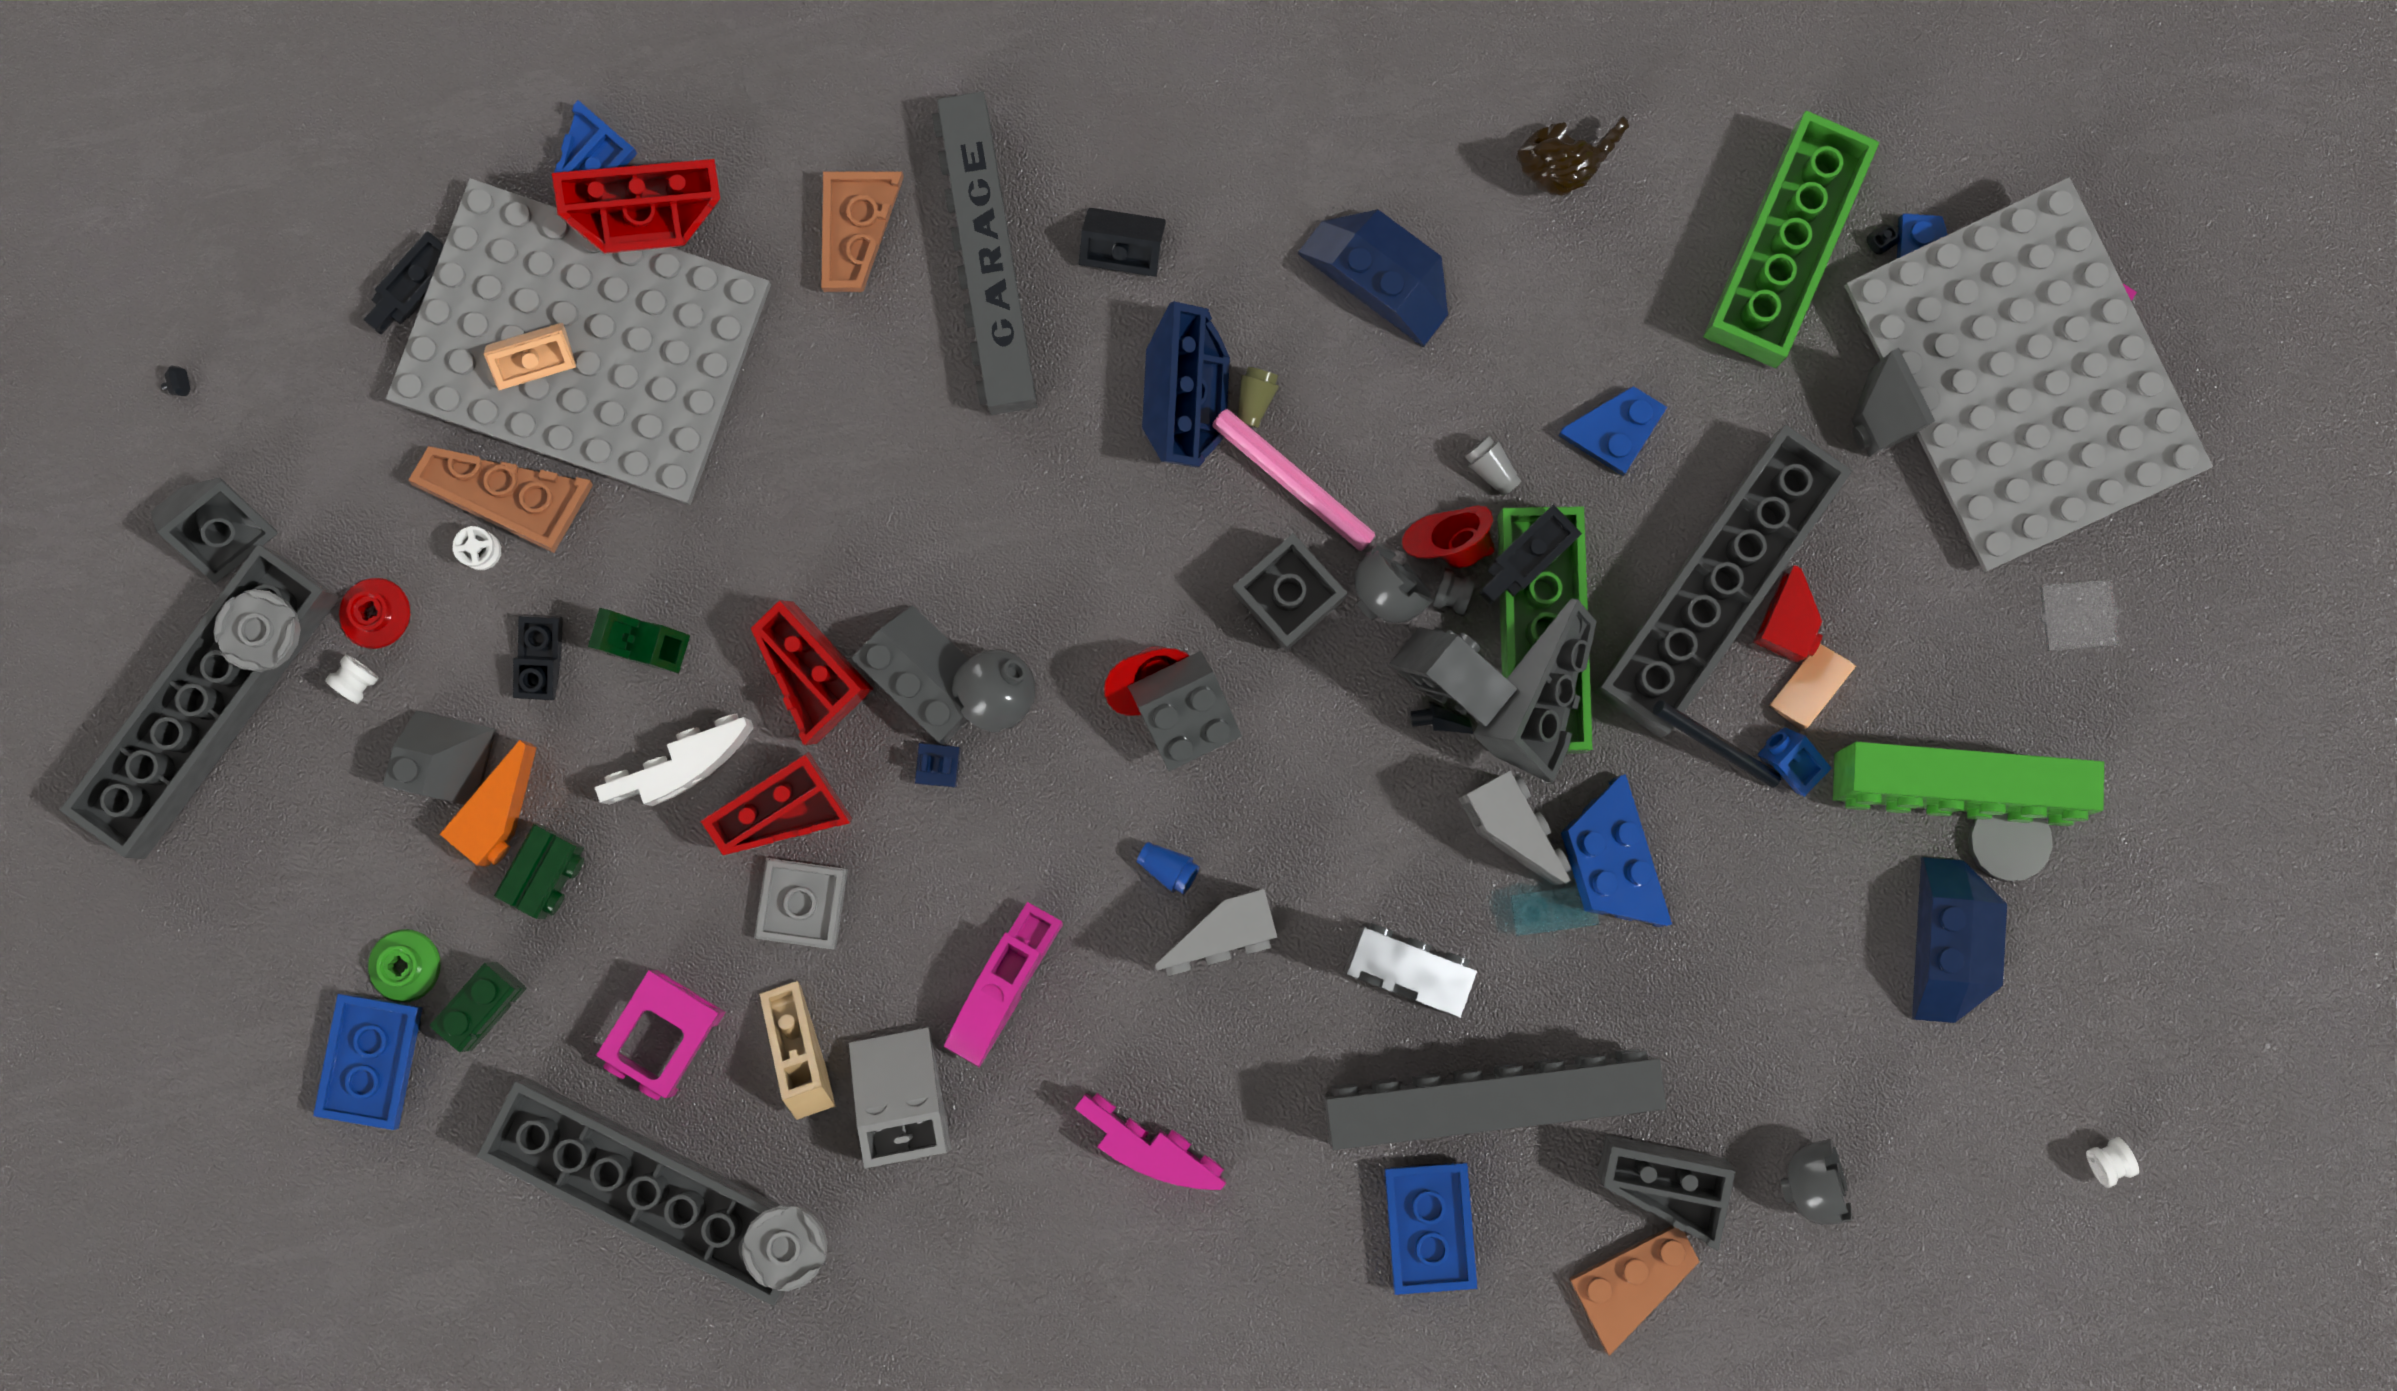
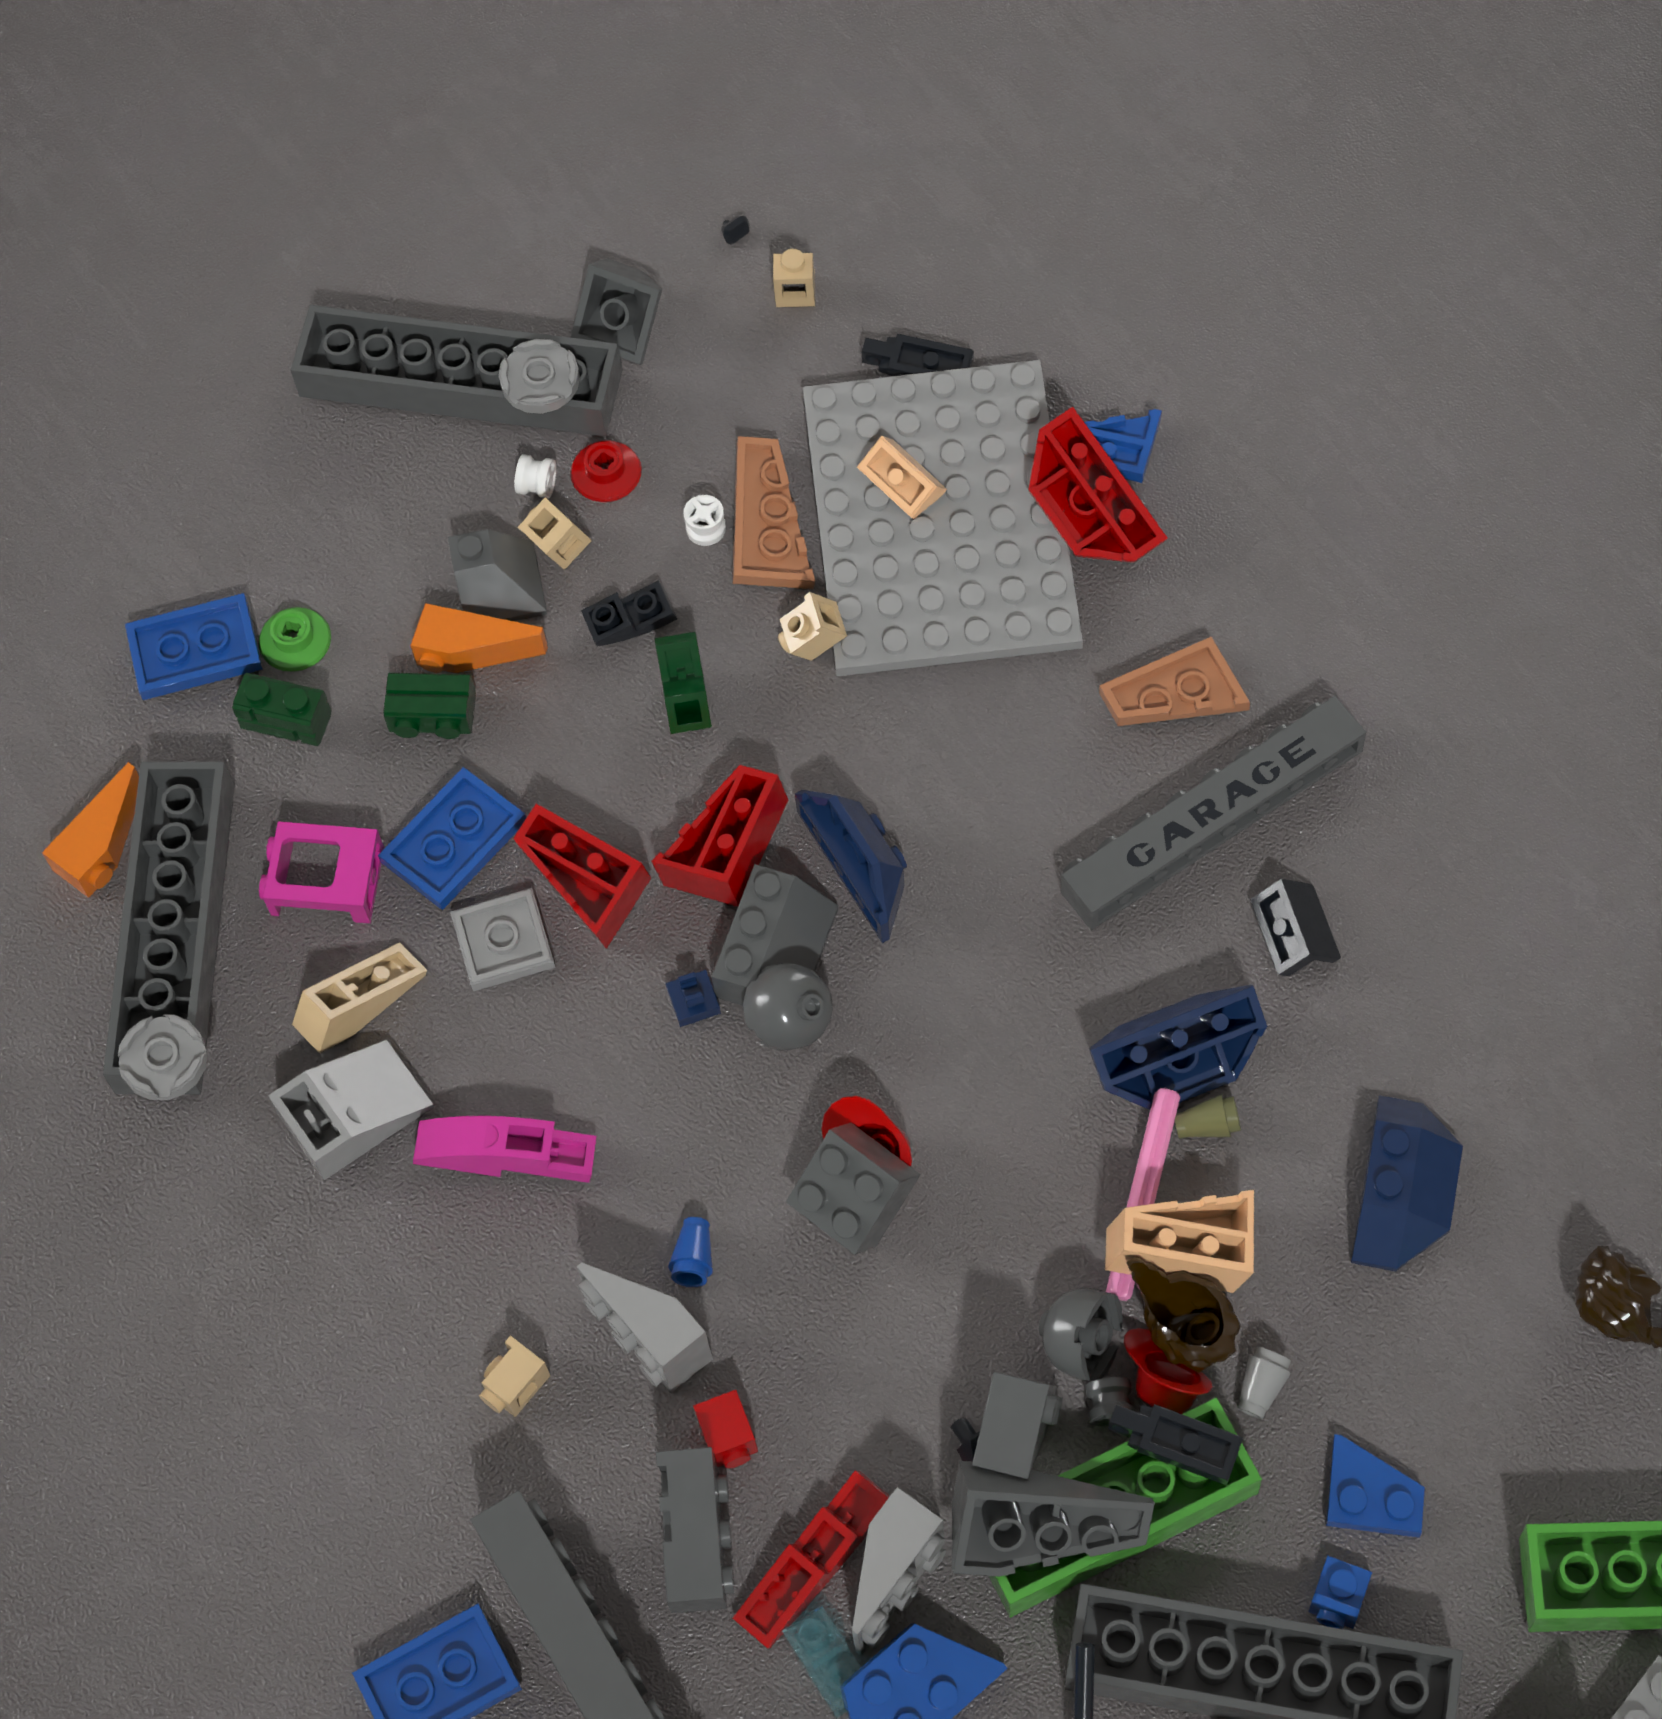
camera: 70 degrees right, 20 degrees down
(257, 350) = (794, 268): none -> tan brick
(435, 684) = (554, 533): none -> tan brick
(524, 1225) = (94, 840): none -> orange slope
(639, 504) = (812, 627): none -> tan brick
(683, 906) = (452, 838): none -> blue plate
(693, 760) = (590, 780): white slope -> none
(878, 566) = (857, 854): none -> dark blue wedge
(1161, 1159) = (396, 1374): dark pink slope -> none
(1208, 1062) = (513, 1378): none -> tan brick
(1289, 592) = (1023, 1236): dark grey brick -> none
(1335, 907) = (726, 1429): none -> red brick
(1360, 464) = (1199, 1237): none -> light nougat wedge
(1422, 497) = (1186, 1316): none -> dark brown hair
(1469, 884) = (811, 1560): none -> red slope
(1683, 493) = (1339, 1593): none -> blue bracket

